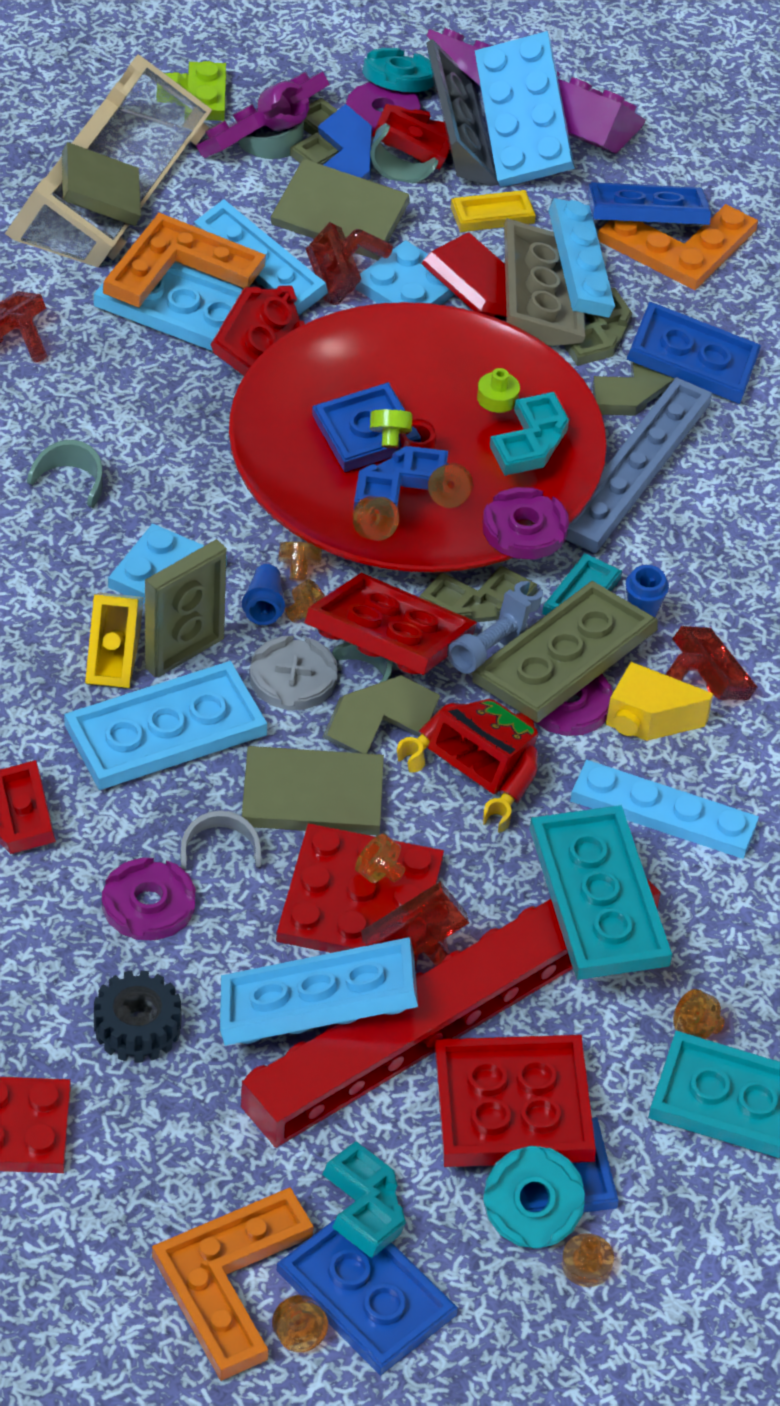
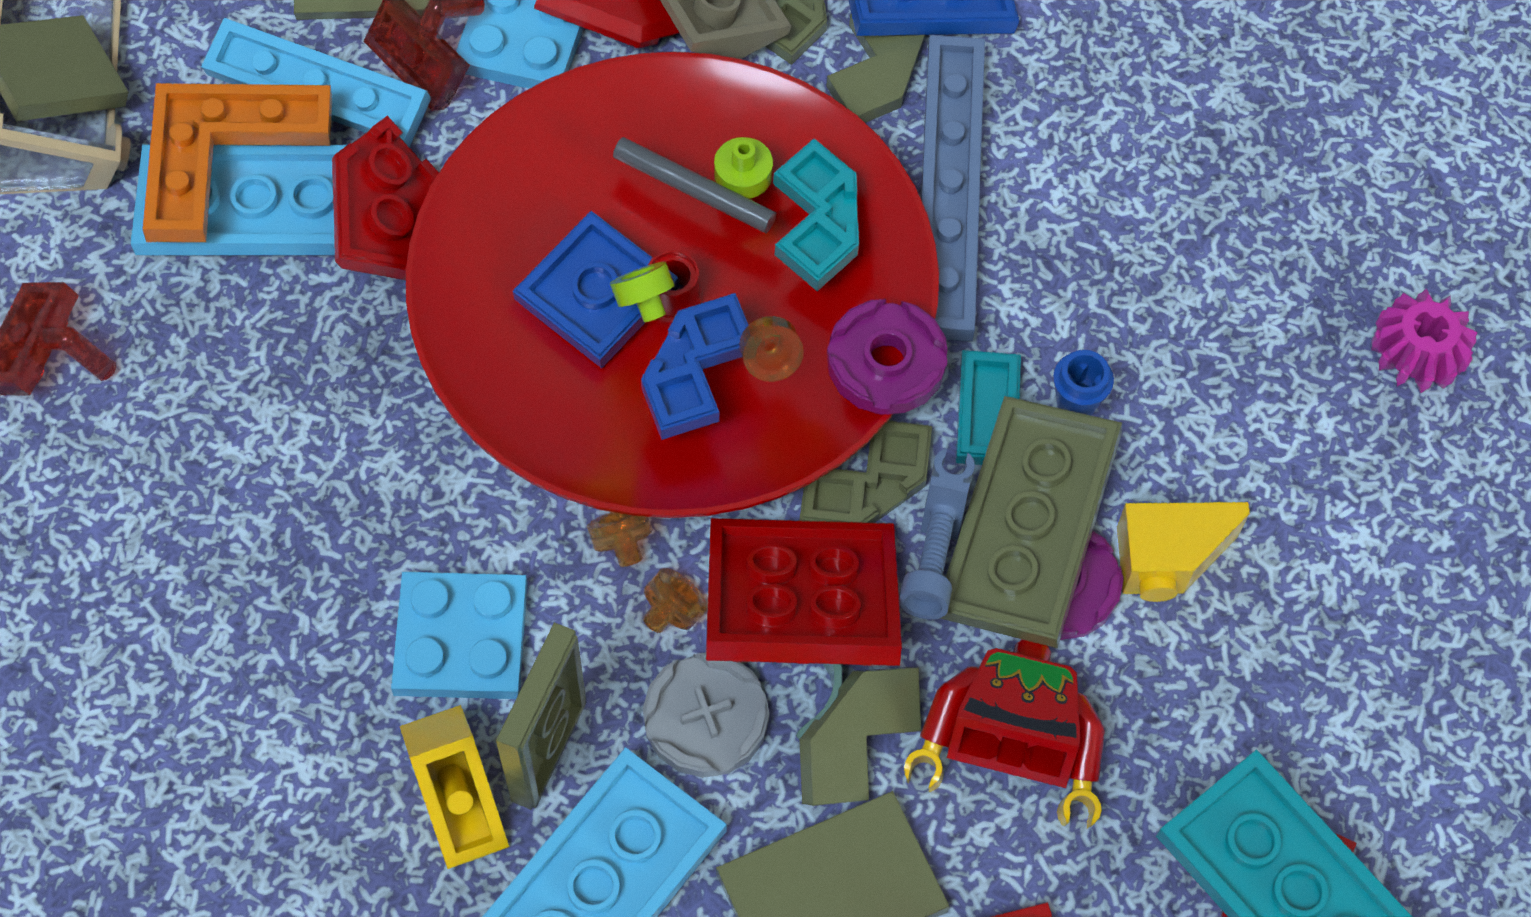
camera: 25 degrees left, 15 degrees up
(72, 454) = (240, 511): sand green helmet -> none
(264, 596) = (608, 615): blue cone -> none
(375, 518) = (705, 447): clear orange tile -> none
(461, 389) = (694, 185): none -> dark grey bar
(666, 808) = (1265, 690): medium azure plate -> none
(713, 661) = (1206, 446): clear red plate -> none

